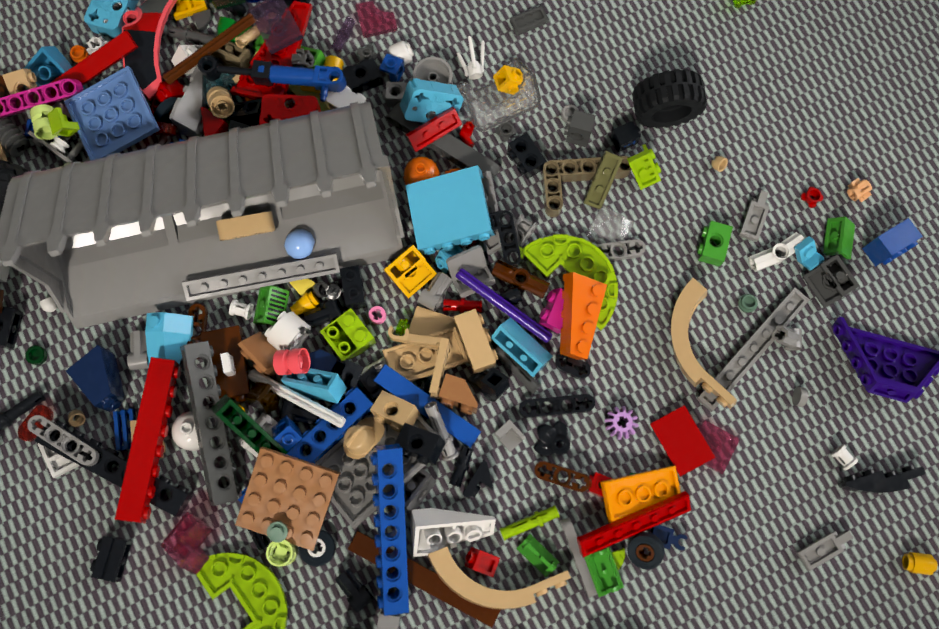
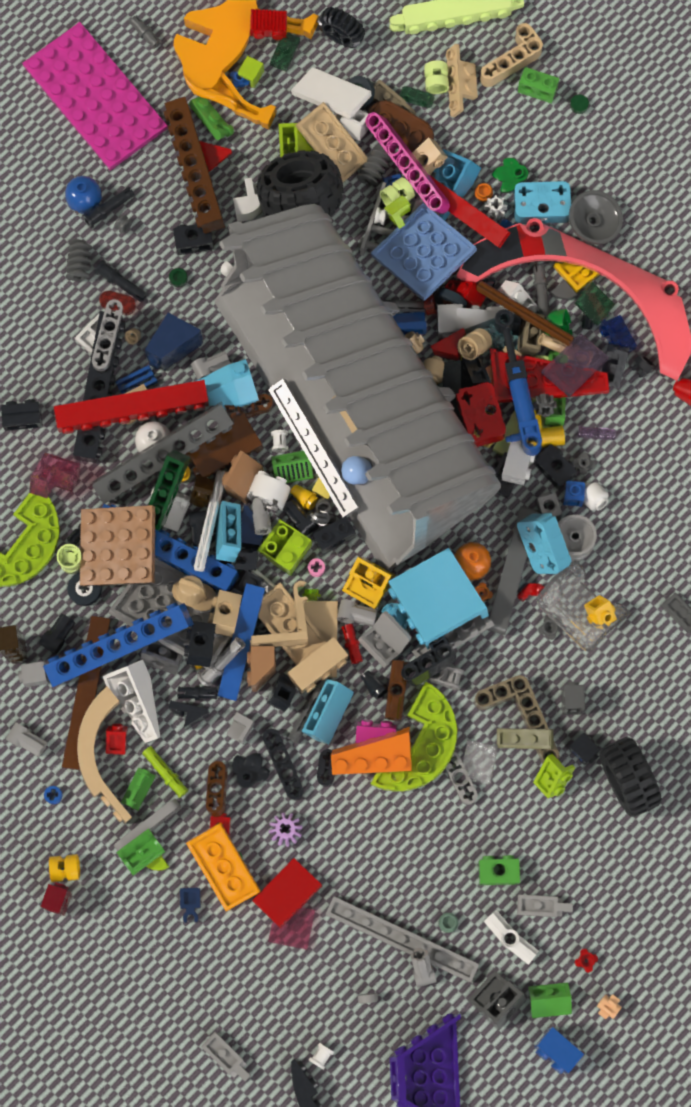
camera: 75 degrees right, 0 degrees up
(71, 28) = (508, 176): none -> green plate
(228, 364) = (220, 449): white tile -> none
(277, 531) = (85, 547): sand green plate -> none
(286, 433) = (175, 524): blue brick -> none
(291, 362) = (240, 504): coral wheel -> none
(314, 346) = (261, 517): none -> light grey hinge
(375, 21) = (624, 458): clear pink tile -> none
(434, 129) = (517, 555): red plate -> none
(474, 69) = (604, 573): white plant -> none
(503, 305) = (362, 682): dark purple axle -> none
(530, 154) = (531, 659): black brick -> none
(567, 111) = (592, 686): light grey tile -> none
(634, 524) = (192, 866): red tile -> none
(654, 546) = (165, 880): black bush -> none
(684, 308) = (390, 861): tan arch -> none
(719, 163) = (589, 854): tan hinge -> none
(807, 254) = (519, 969): medium azure bracket -> none

